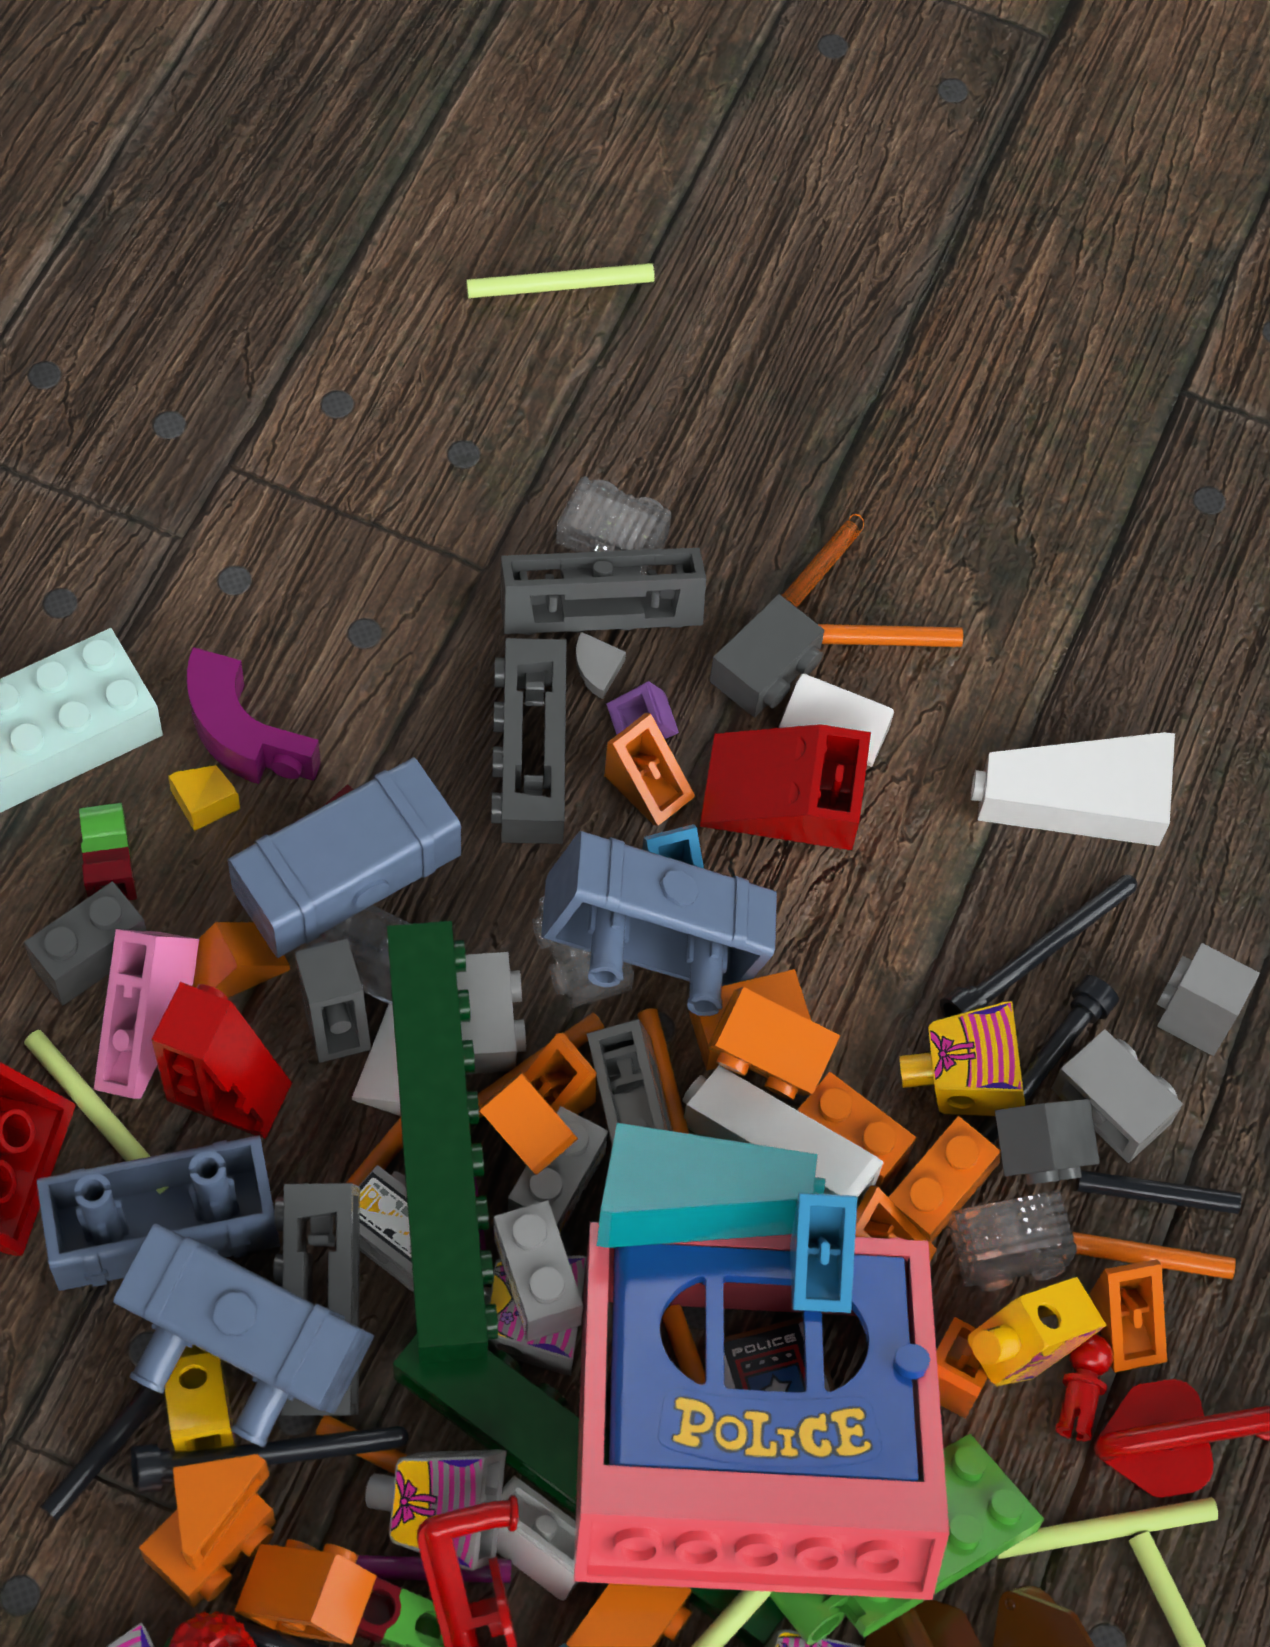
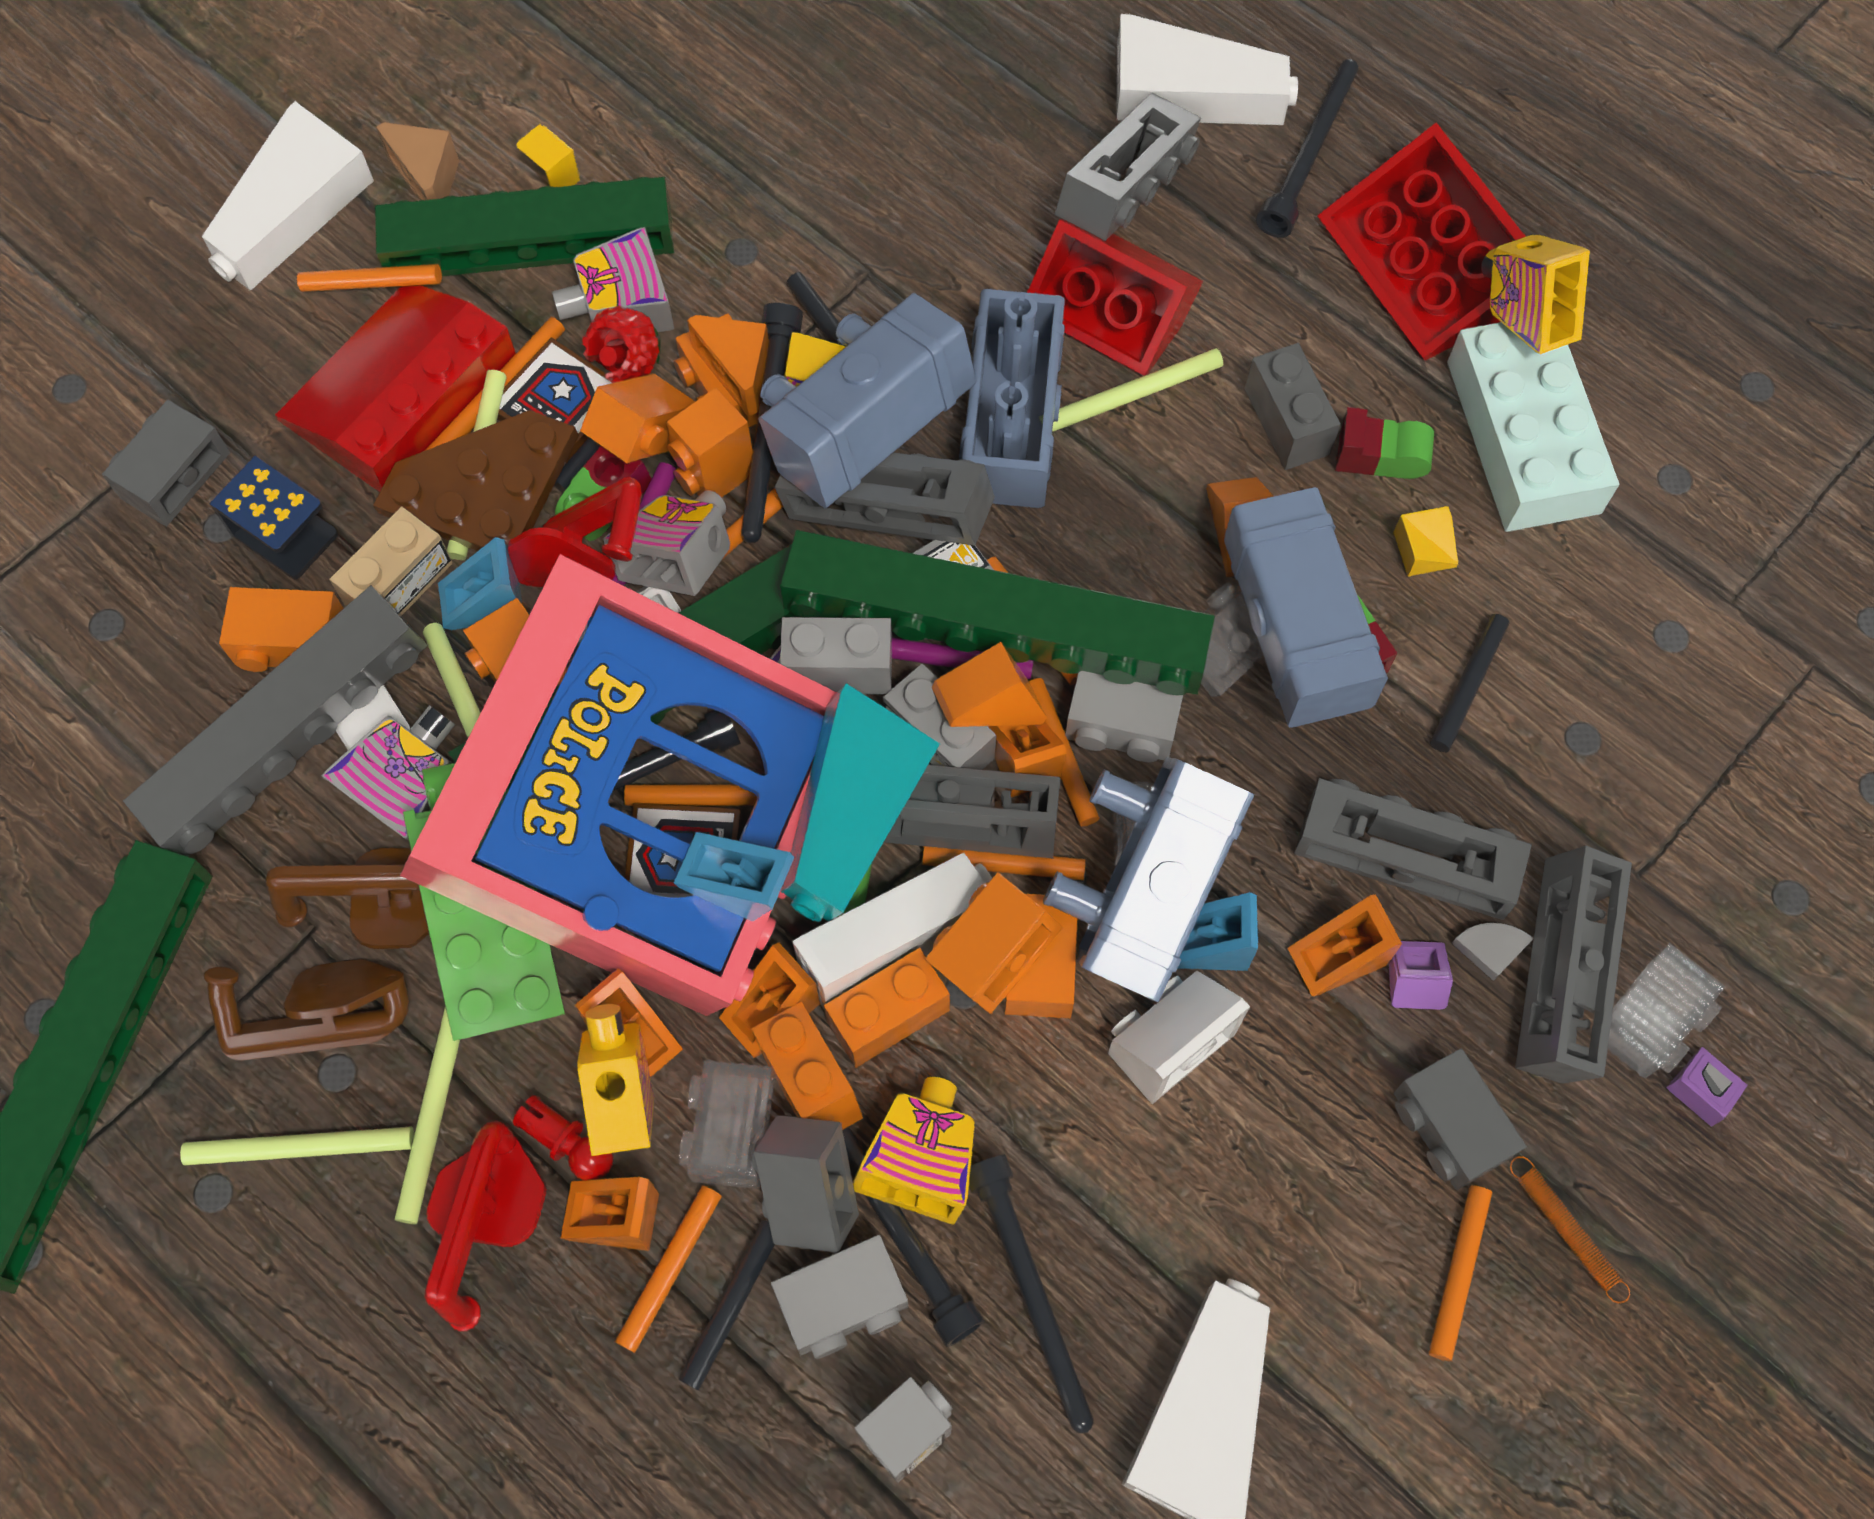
camera: 115 degrees right, 5 degrees up
(140, 987) = (1221, 435): bright pink slope -> none
(217, 1061) = (1136, 461): red wedge -> none
(232, 734) = (1501, 571): magenta arch -> none
(320, 1501) = (710, 446): none -> orange brick
(333, 1000) = (1171, 567): dark grey brick -> none
(343, 731) = (1469, 683): none -> black bar
(663, 482) = (1707, 1087): none -> medium lavender slope
(788, 783) = (1293, 1086): red slope -> none
(801, 871) = (1176, 1033): none -> white slope
(826, 704) = (1362, 1170): white slope -> none

